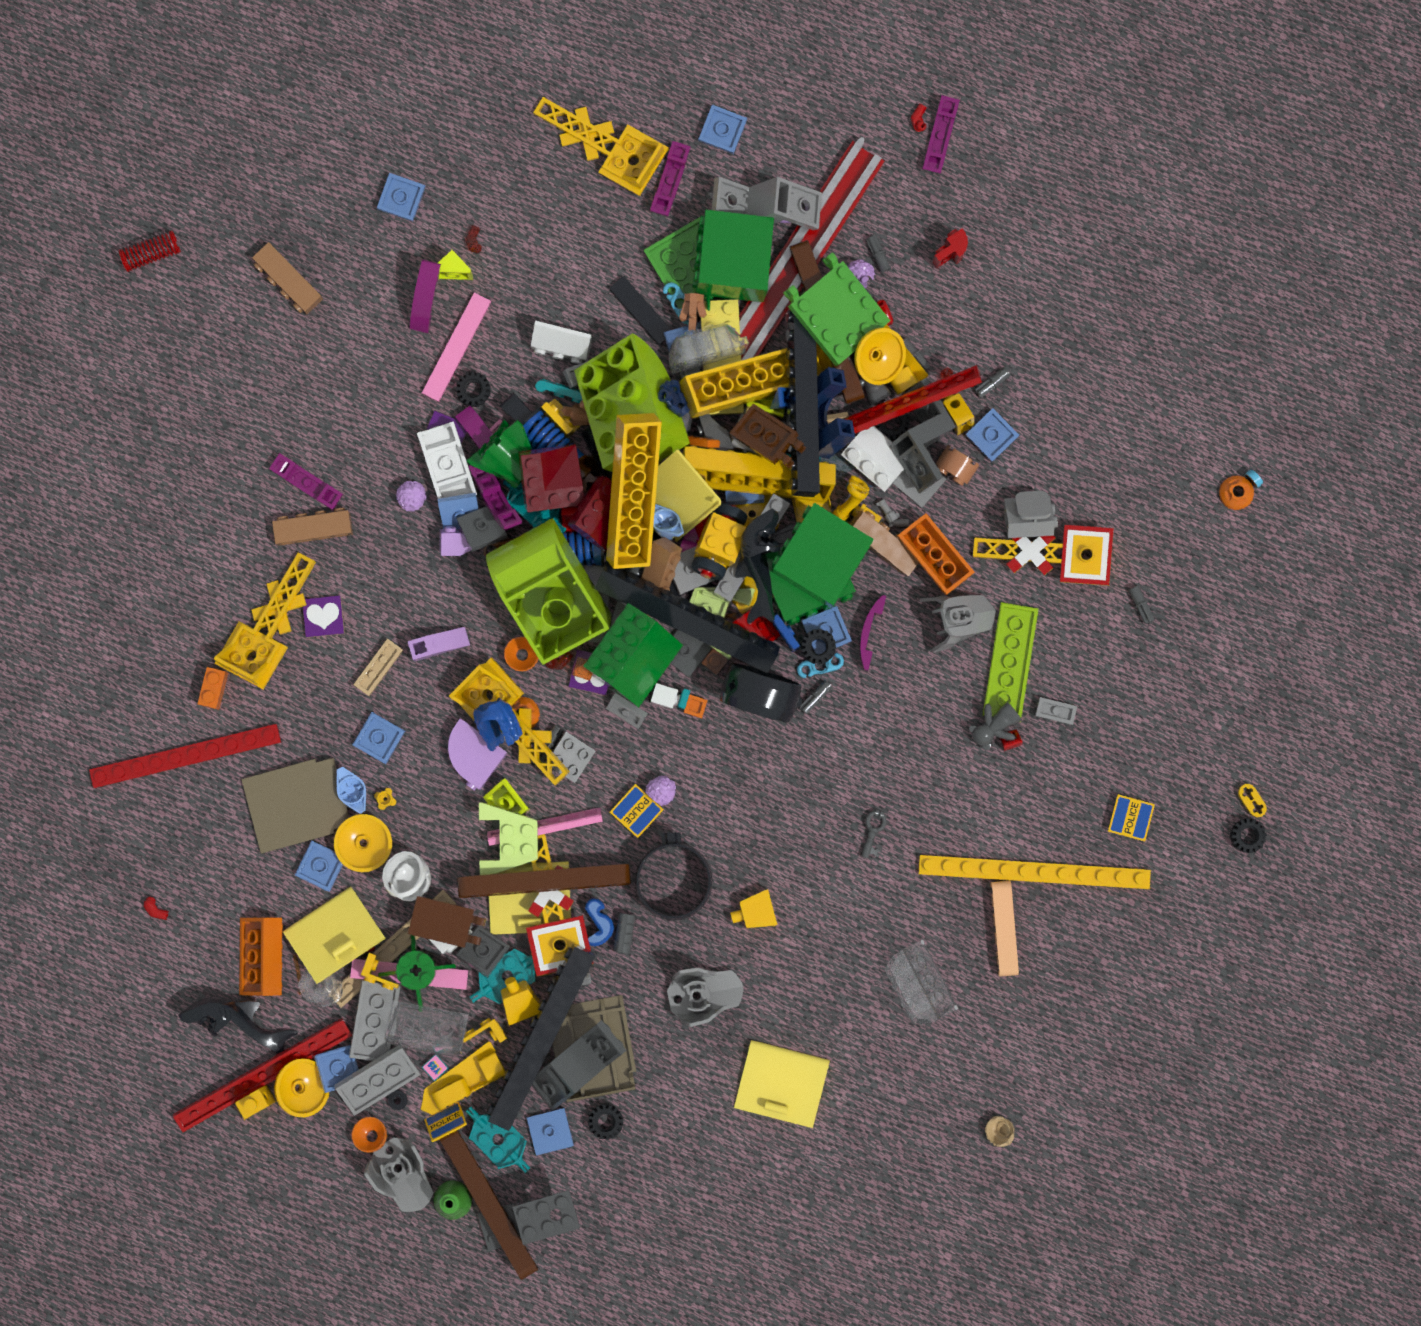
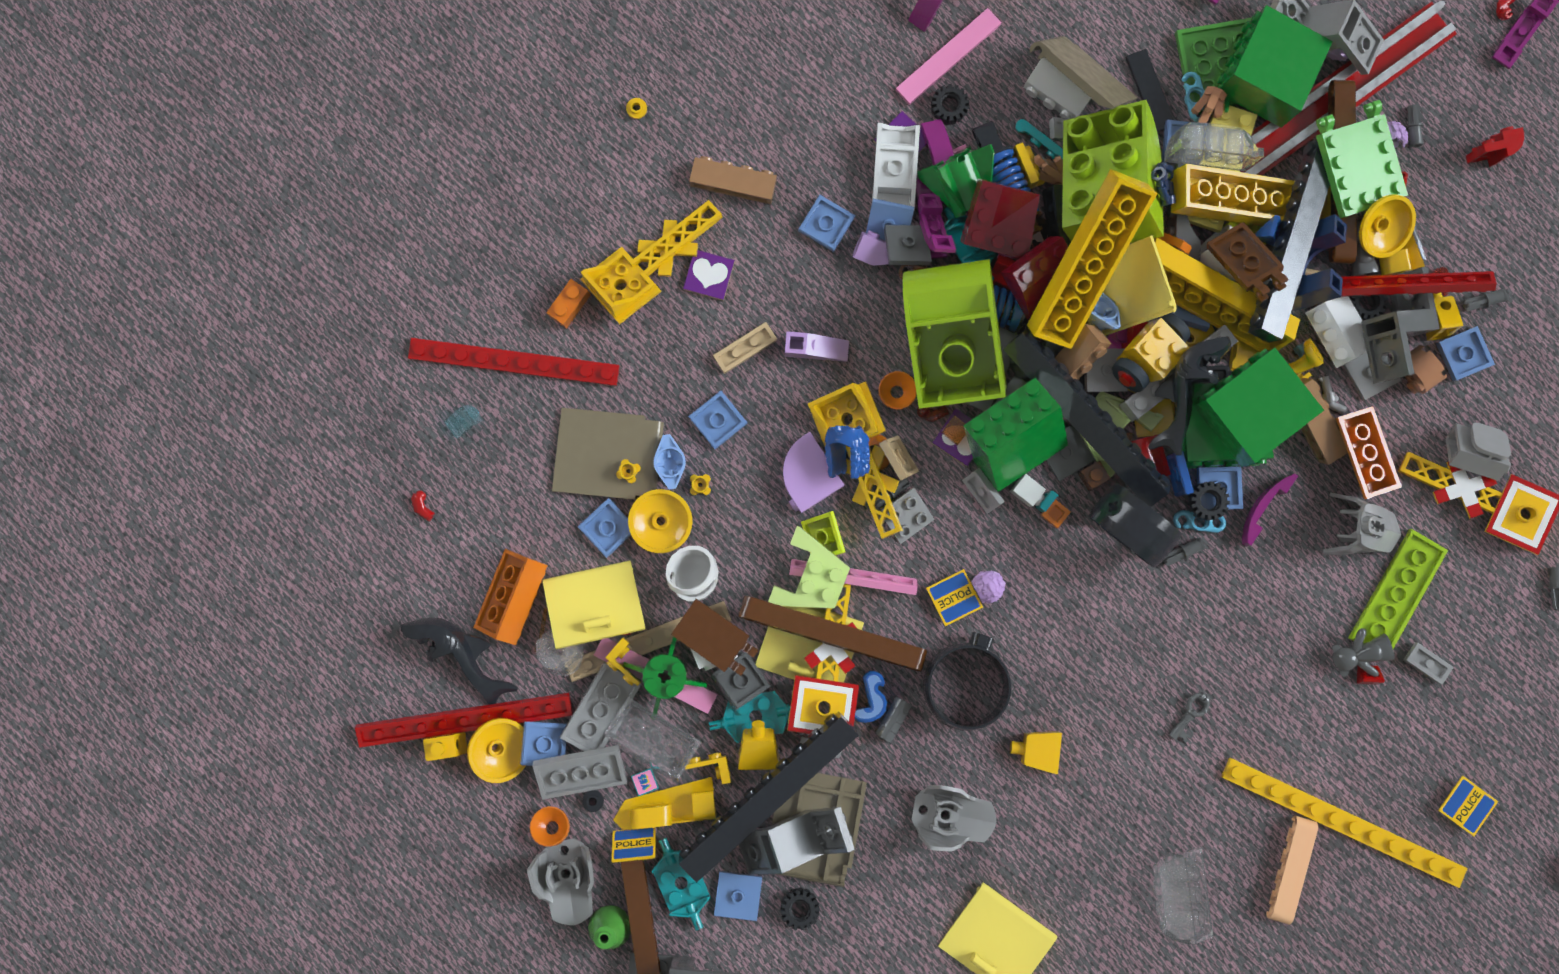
camera: 20 degrees right, 0 degrees up
(161, 823) = (463, 420): none -> clear light blue bracket
(211, 496) = (639, 113): none -> yellow plate
(306, 481) = (744, 132): magenta slope -> none
(314, 811) = (622, 473): none -> yellow plate
(406, 533) = (826, 223): none -> medium blue plate
(411, 495) = (846, 186): lavender piece -> none
(544, 711) = (899, 457): none -> tan tile
(575, 323) = (1084, 71): none -> dark tan piece

